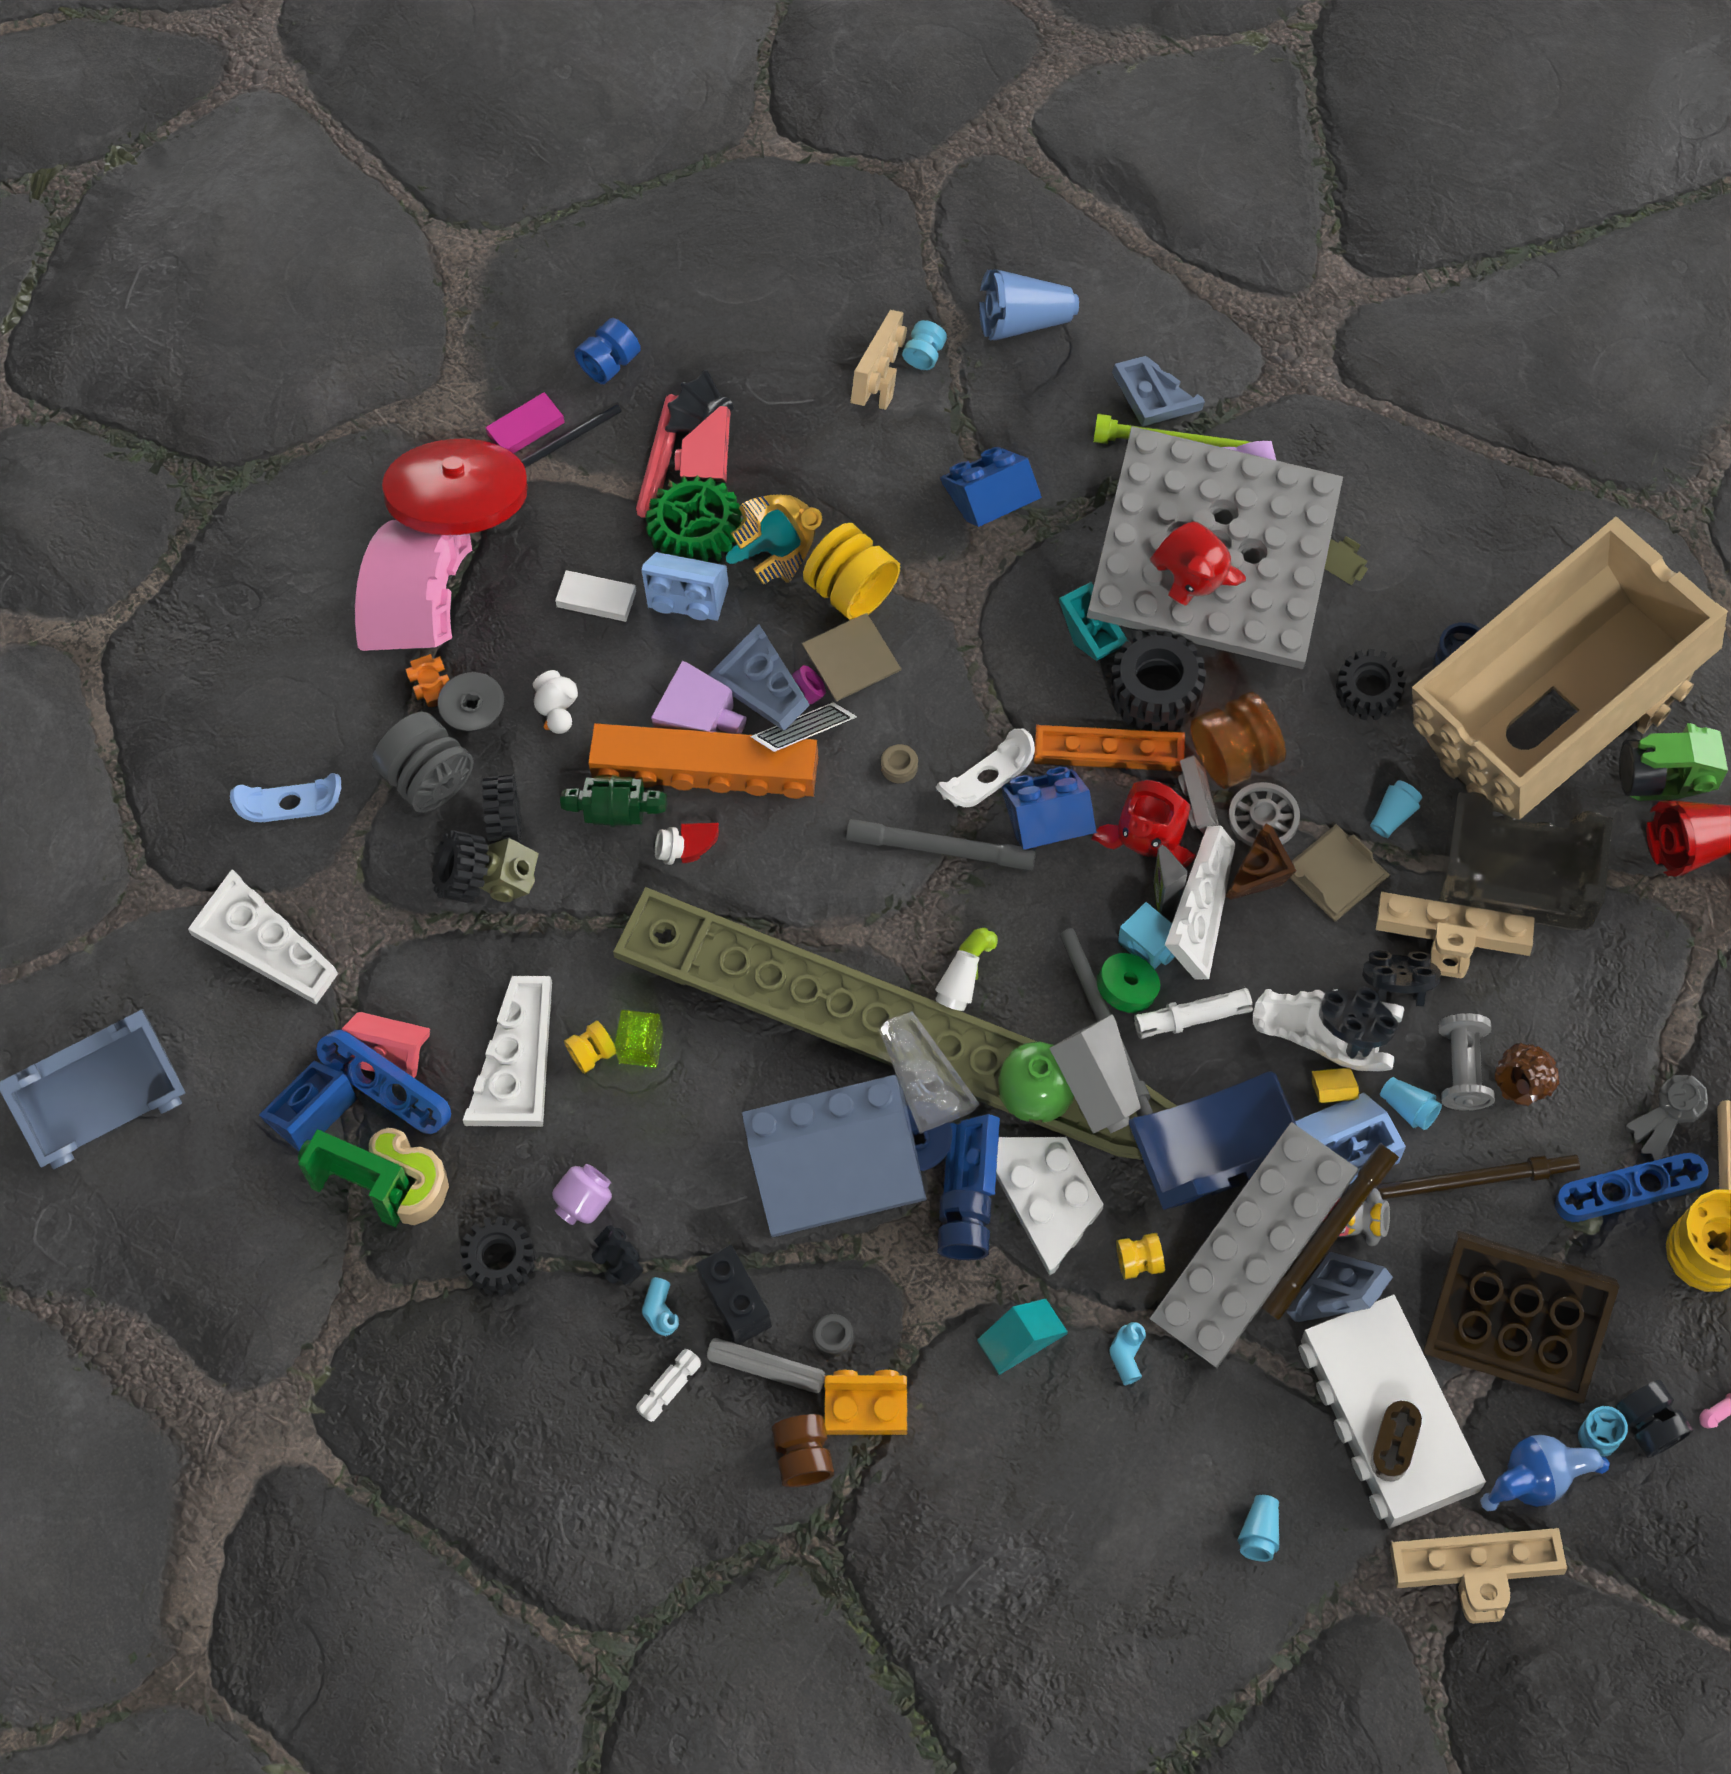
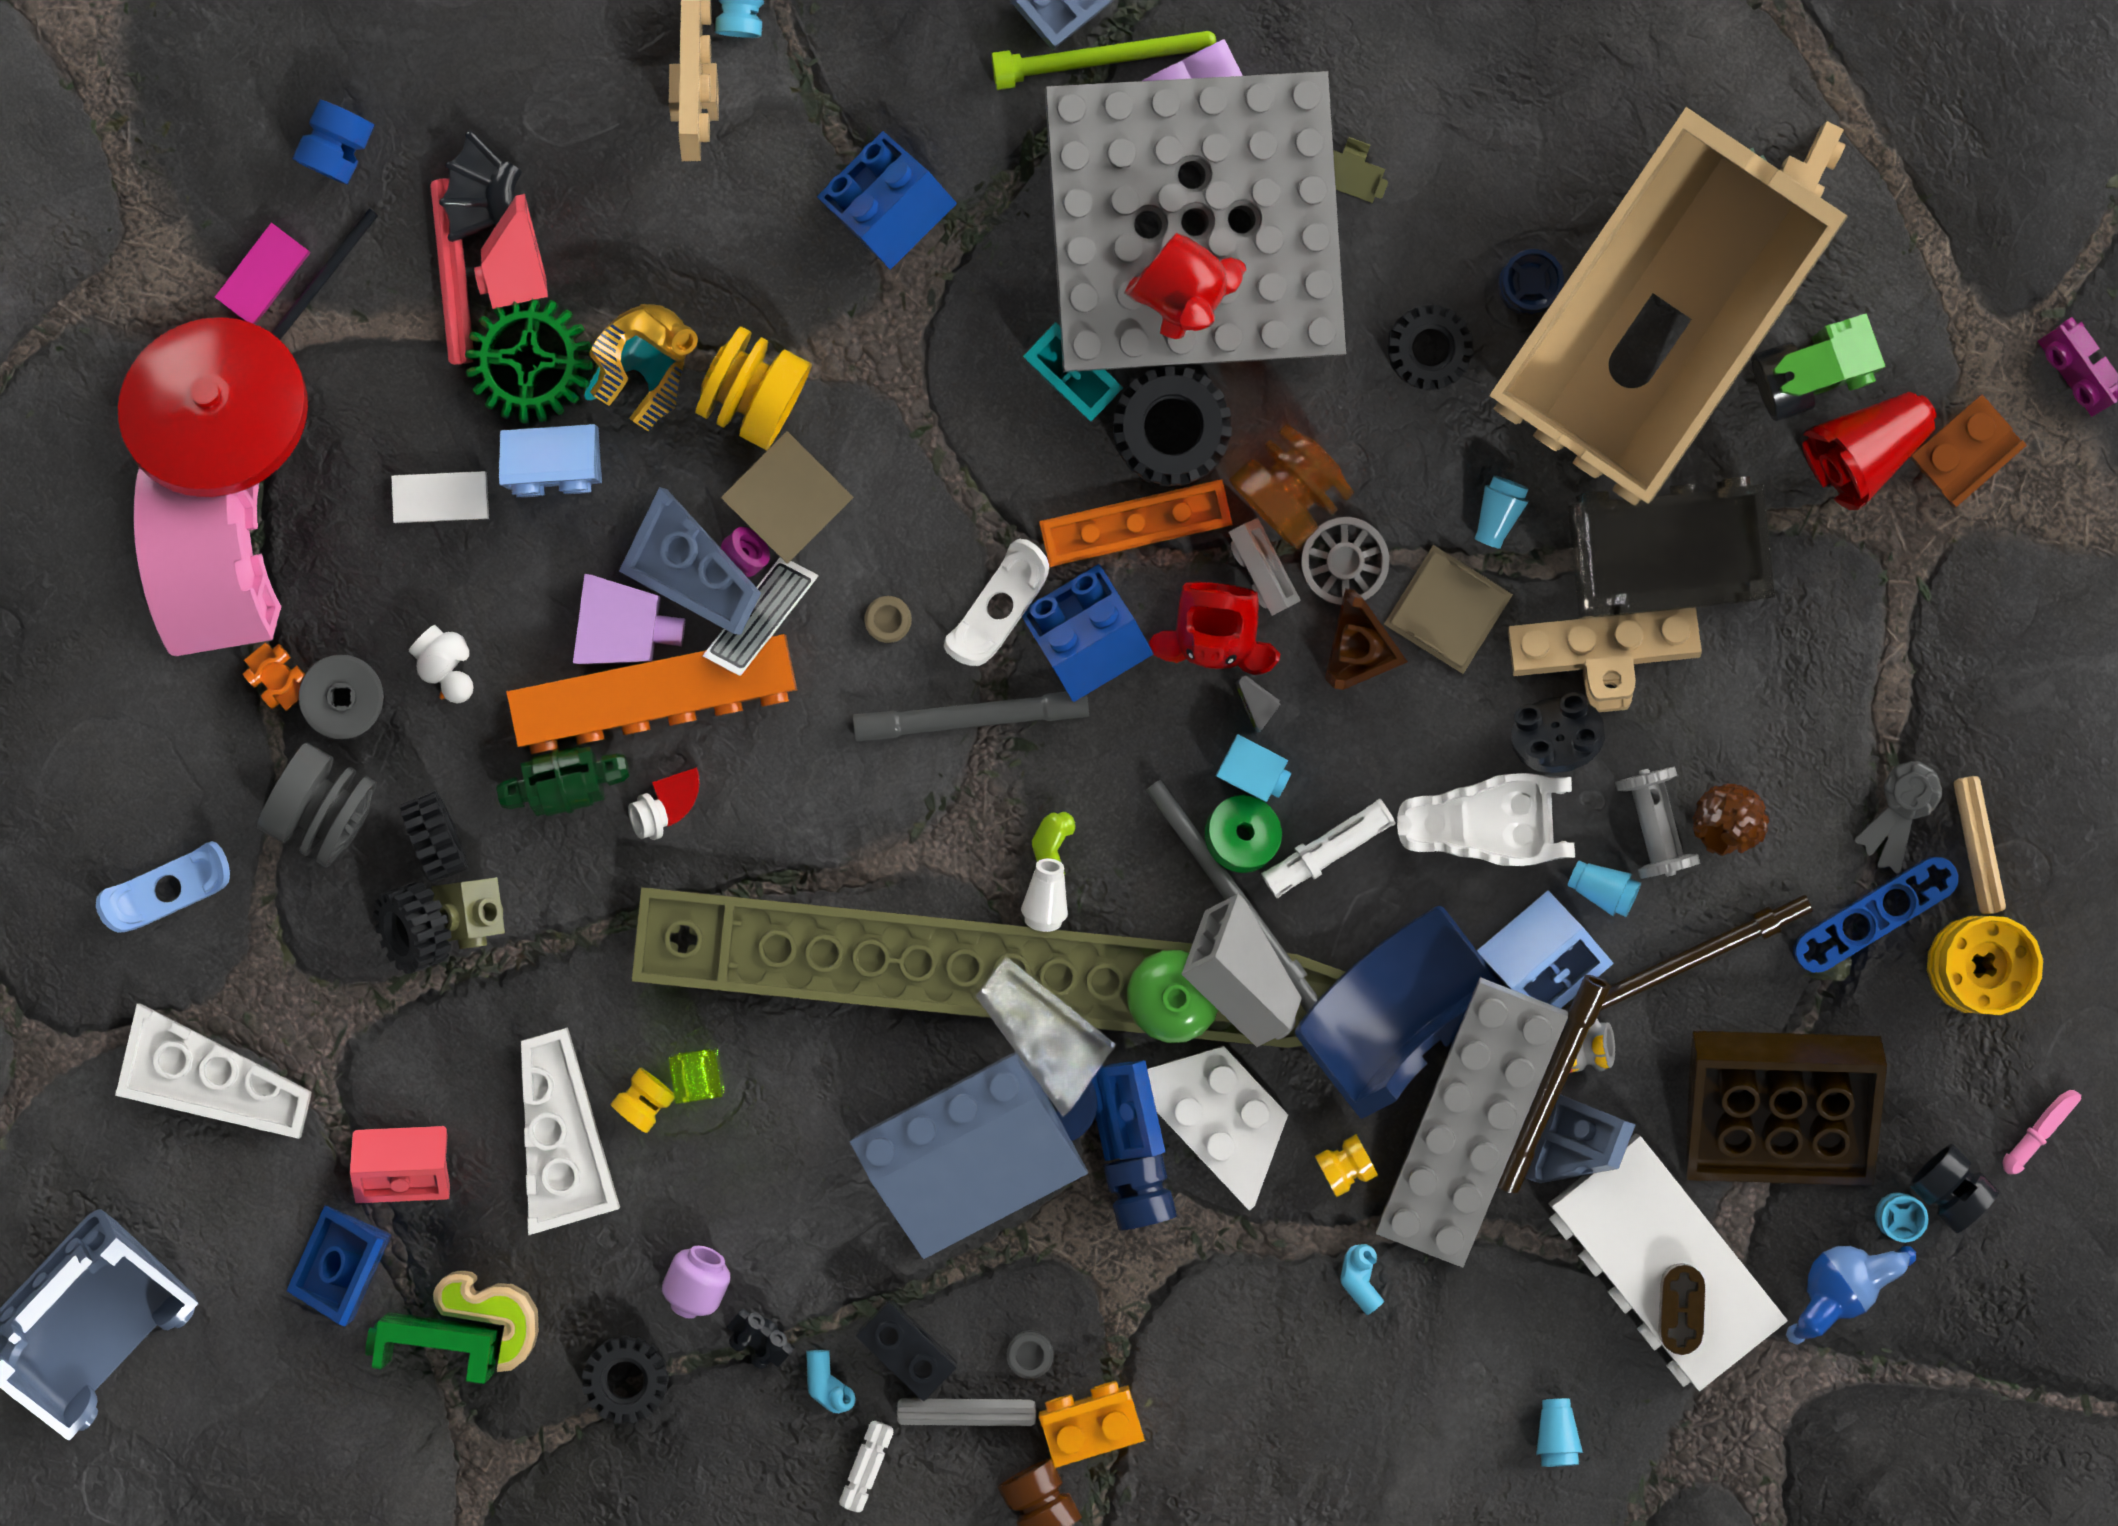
camera: 20 degrees left, 25 degrees up
(385, 1076) = (470, 1233): blue beam -> none
(1021, 1334) = (1240, 1292): teal slope -> none
(1200, 909) = (1304, 717): white wing -> none
(1335, 1085) = (1513, 892): yellow tile -> none
(1357, 1019) = (1509, 805): black plate -> none
(1479, 1565) = (1800, 1404): tan plate -> none

